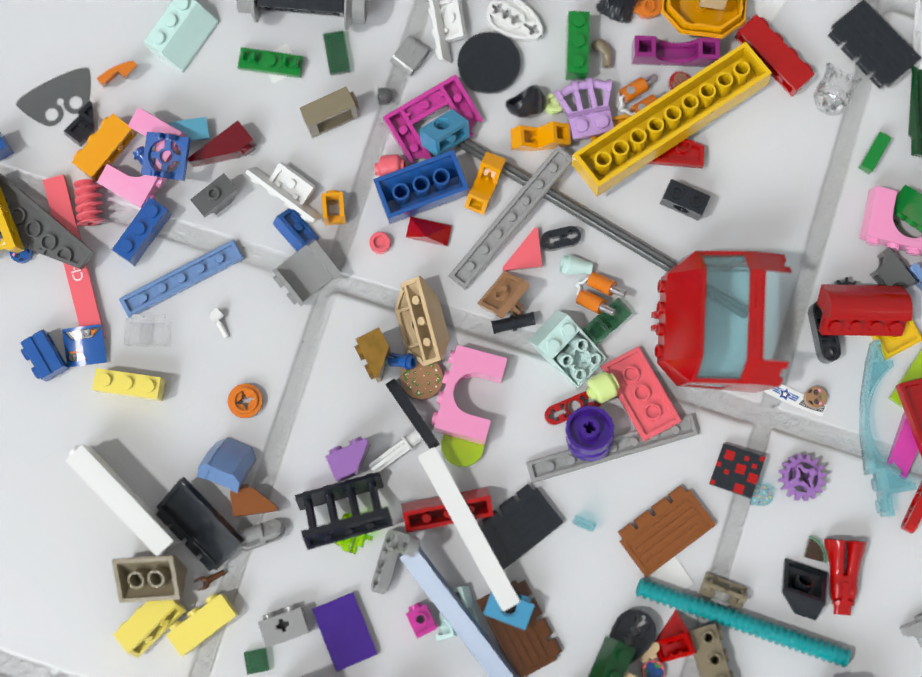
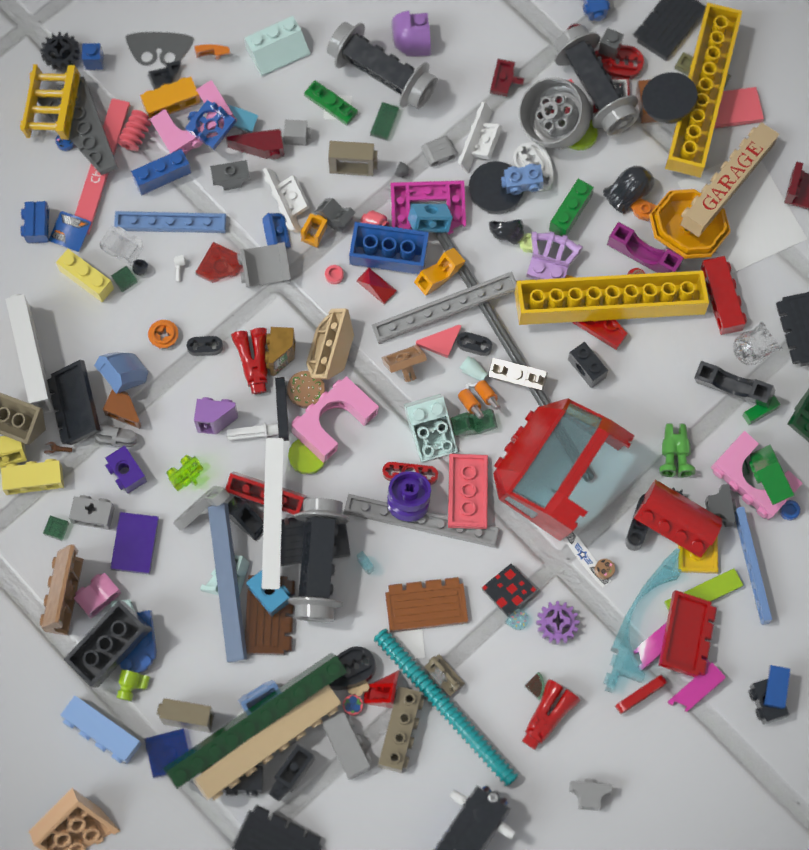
camera: 30 degrees right, 10 degrees down
(170, 364) = (124, 278): none -> clear green tile
(179, 344) = (139, 267): none -> black hinge
(255, 113) = (296, 132): none -> light grey brick
(257, 295) = (218, 264): none -> clear red plate
(283, 552) = (120, 459): none -> dark purple brick
(290, 385) = (204, 345): none -> black beam
(345, 180) = (335, 215): none -> dark grey brick
(349, 527) = (186, 462): black fence -> none
(359, 387) = (254, 369): none -> red piece
(400, 360) = (301, 368): blue pin -> none
(427, 626) = (197, 572): dark pink brick -> none
(441, 544) = (245, 517): none -> black slope
(509, 44) = (522, 179): none -> medium blue brick
(513, 322) = (400, 385): black pin -> none
(541, 138) = (502, 262): light orange brick -> none
(541, 552) = (316, 559): none -> brick
(602, 387) = (439, 467): yellowish green head -> none
(606, 51) = (592, 225): dark tan arm -> none
(622, 247) = (518, 374): none -> plate
(635, 89) = (597, 264): orange piece -> none
(804, 588) = (508, 707): black slope -> none
(817, 234) = (676, 445): none -> bright green piece
(840, 142) = (747, 389): none -> black arch

